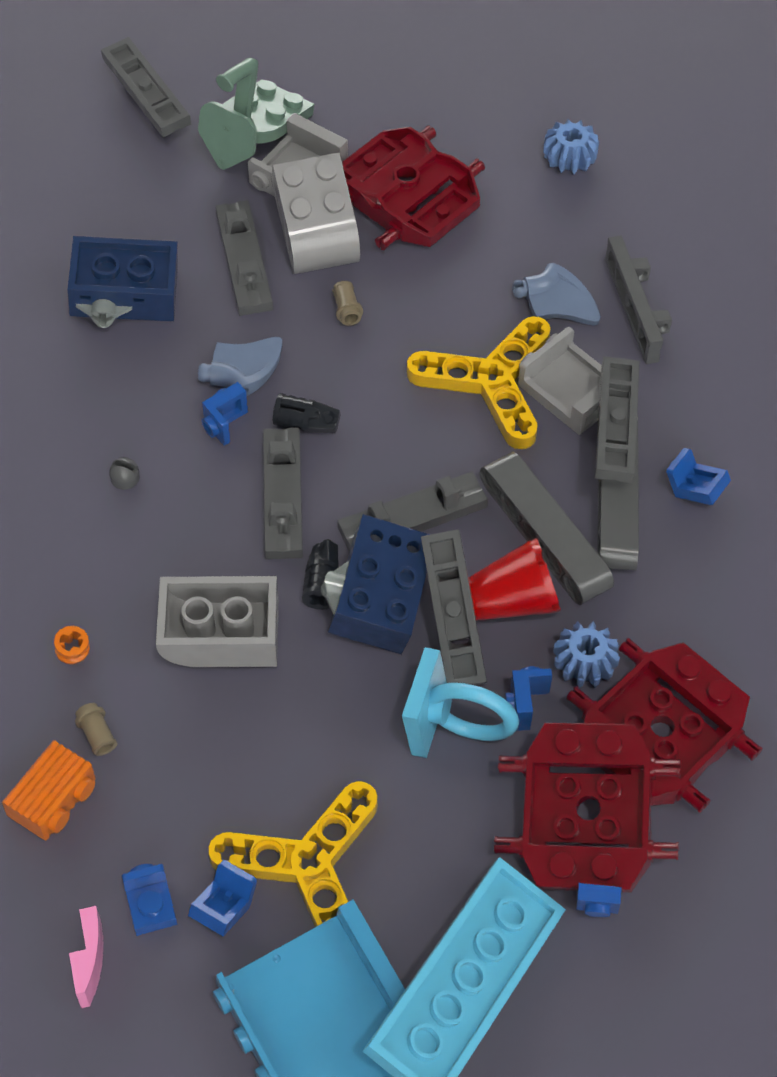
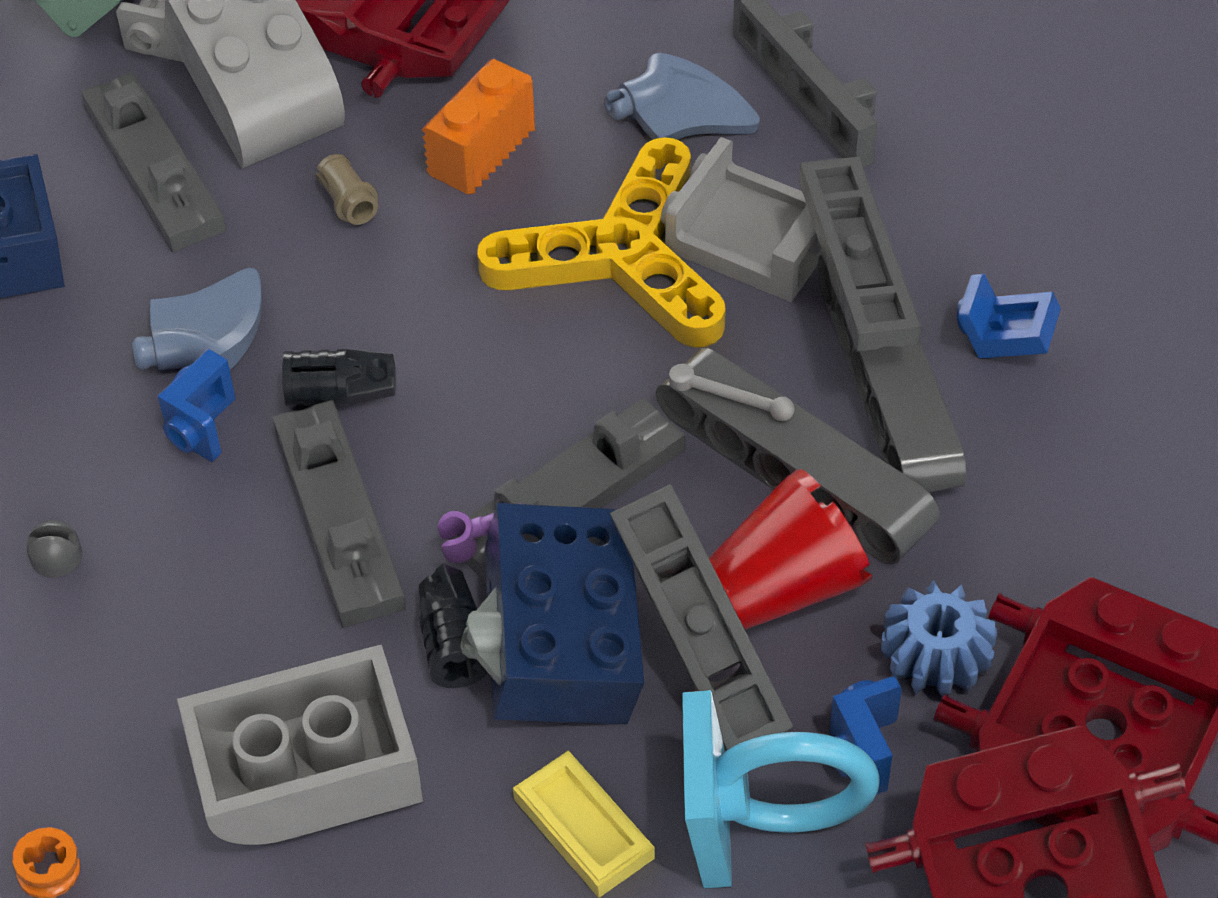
camera: 15 degrees left, 5 degrees down
(345, 530) = (458, 523): none -> medium lavender hand
(358, 702) = (583, 824): none -> light yellow tile
(433, 284) = (480, 126): none -> orange brick
(494, 467) = (683, 378): none -> light grey hinge

